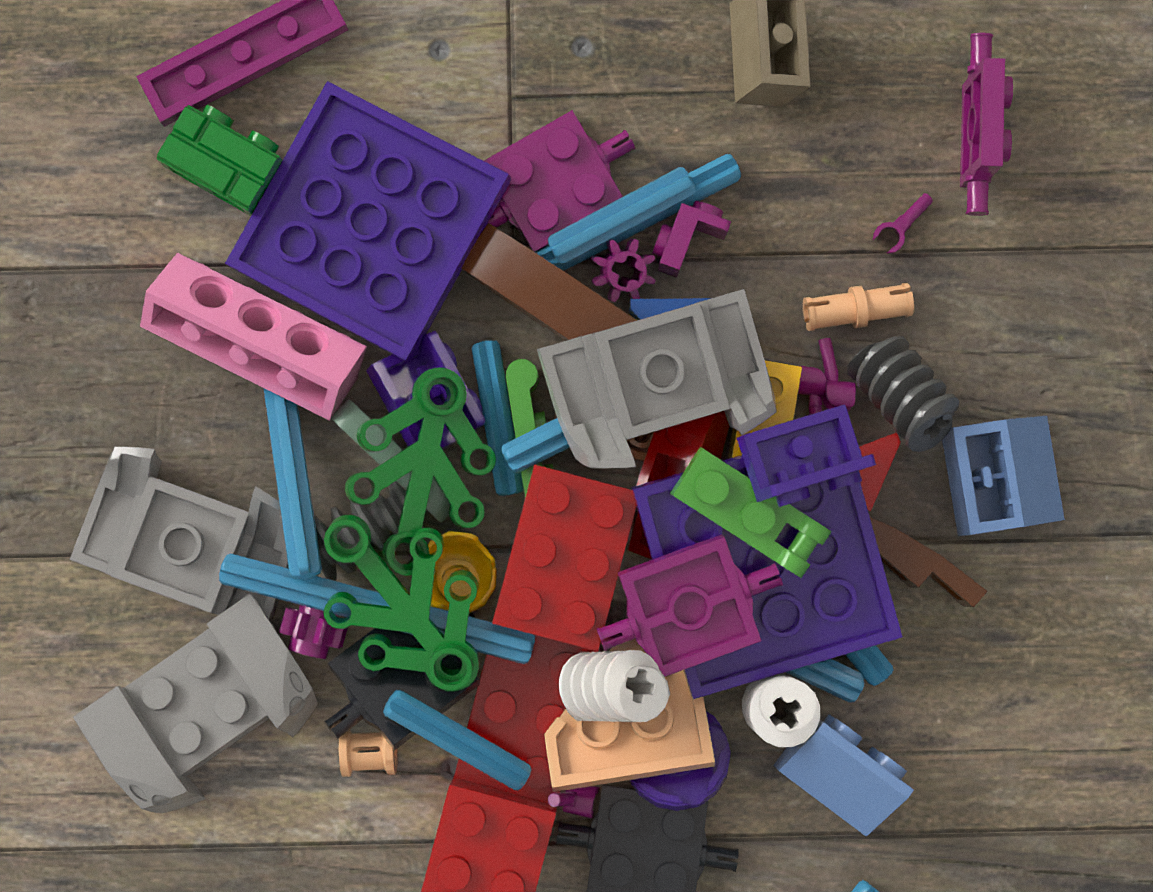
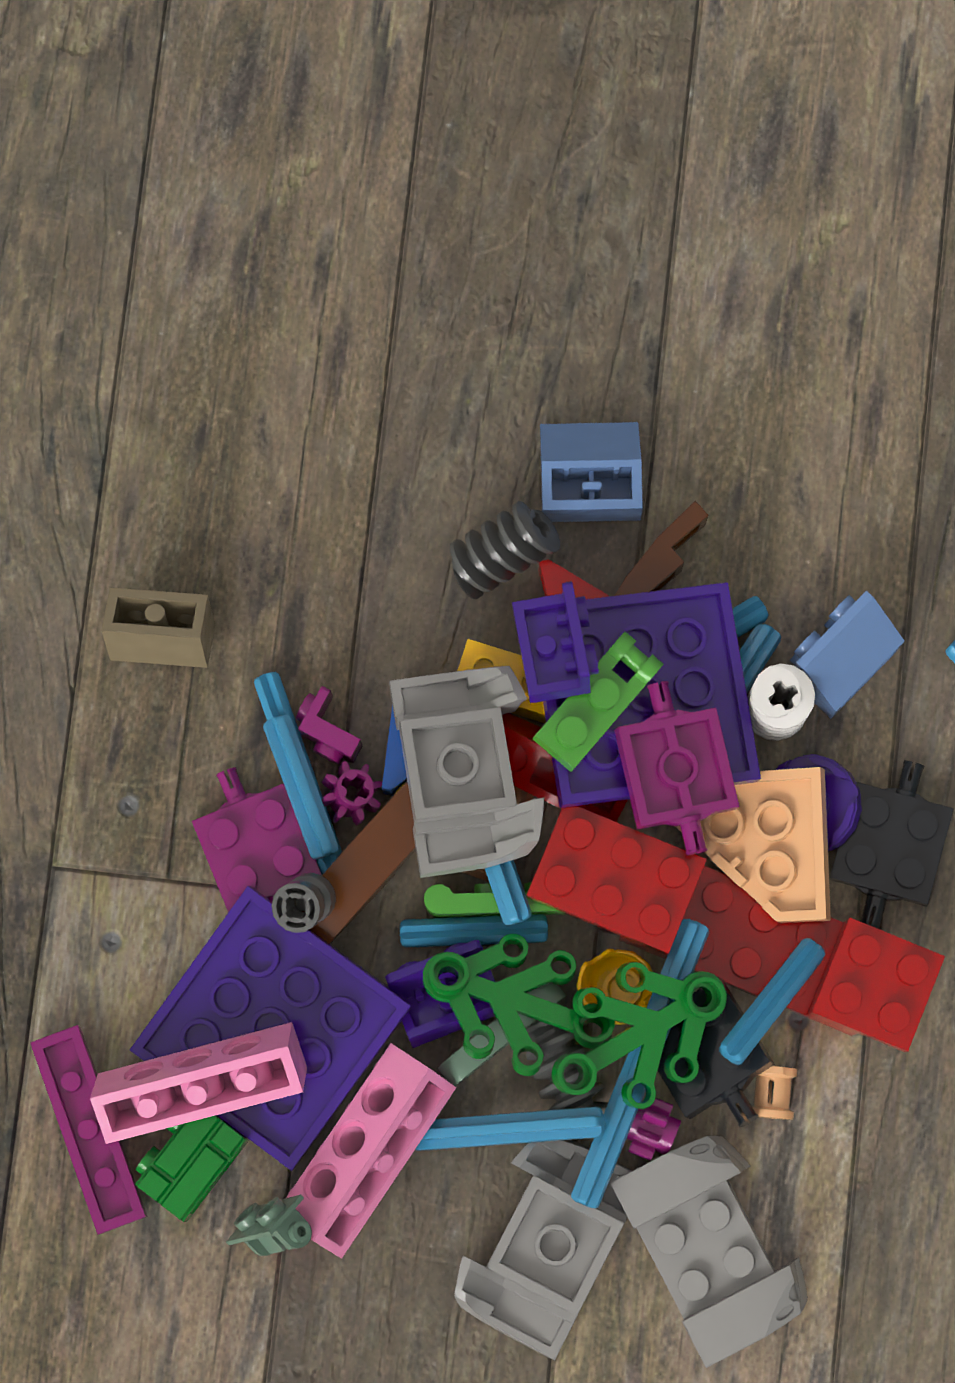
camera: 80 degrees left, 5 degrees down
(161, 249) = (272, 1227): none -> sand green hinge
(294, 151) = (199, 1083): none -> bright pink brick
(496, 232) = (312, 894): none -> dark grey wheel
(575, 801) = (842, 902): magenta hand -> none
(613, 686) = (741, 847): white piece -> none
(812, 384) = (485, 631): magenta hand -> none
(836, 392) = (493, 613): magenta hand -> none
(858, 306) = (415, 581): light nougat pin -> none
(904, 221) = (341, 528): magenta hand -> none
(983, 135) = (278, 445): magenta plate -> none

